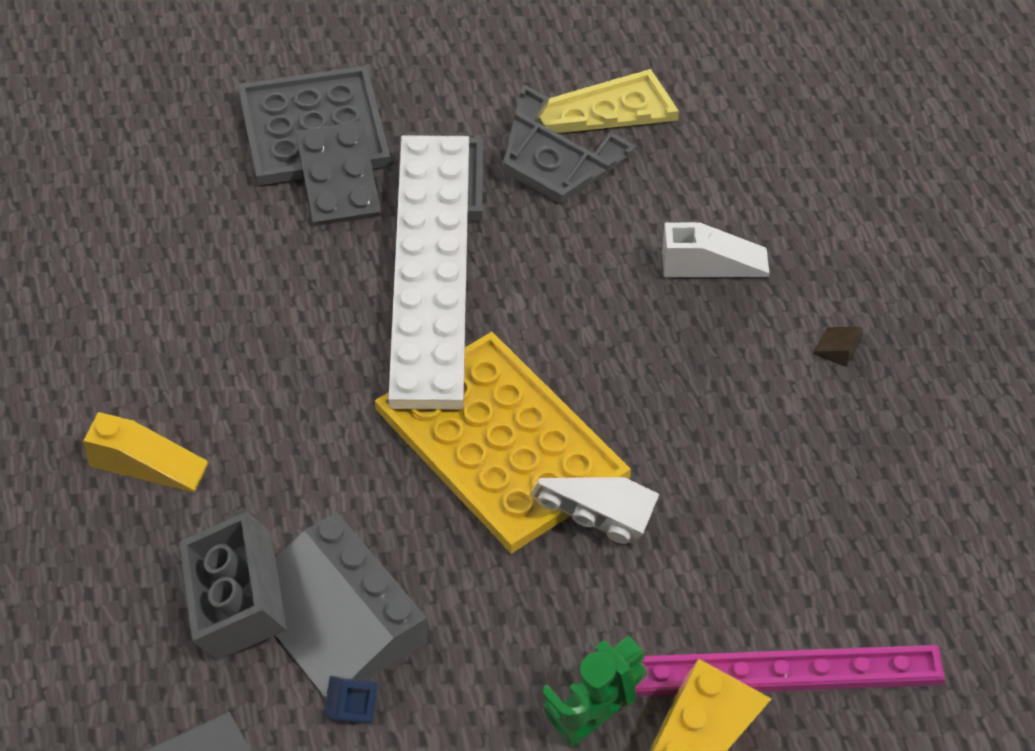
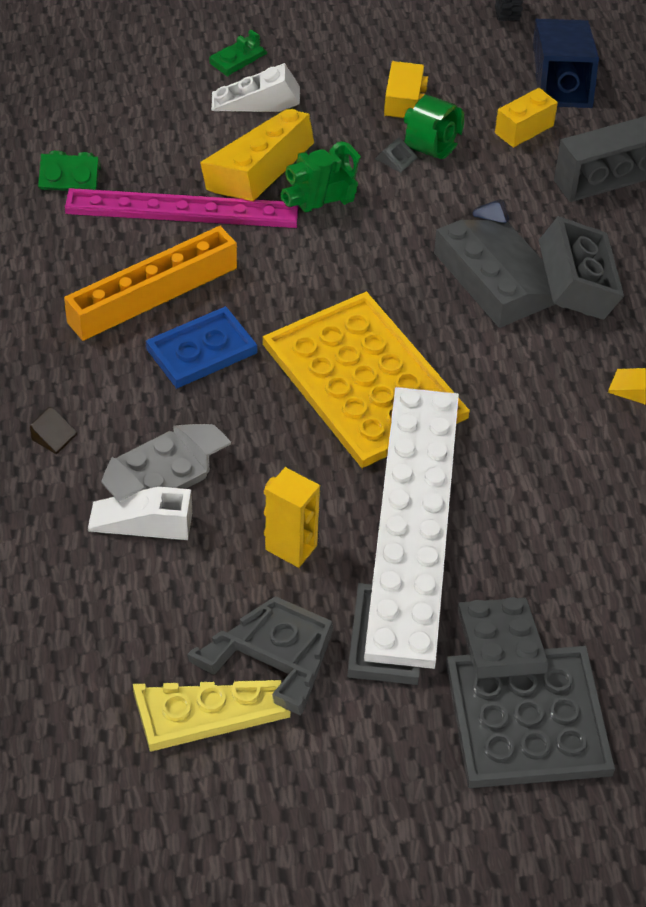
camera: 175 degrees left, 0 degrees up
(557, 224) = (291, 516): none -> yellow brick
(604, 503) = (296, 301): white slope -> none
(701, 457) = (201, 347): none -> blue plate
(718, 309) = (168, 460): none -> light grey piece
(781, 519) = (150, 282): none -> light orange brick
(955, 708) = (68, 171): none -> green bracket

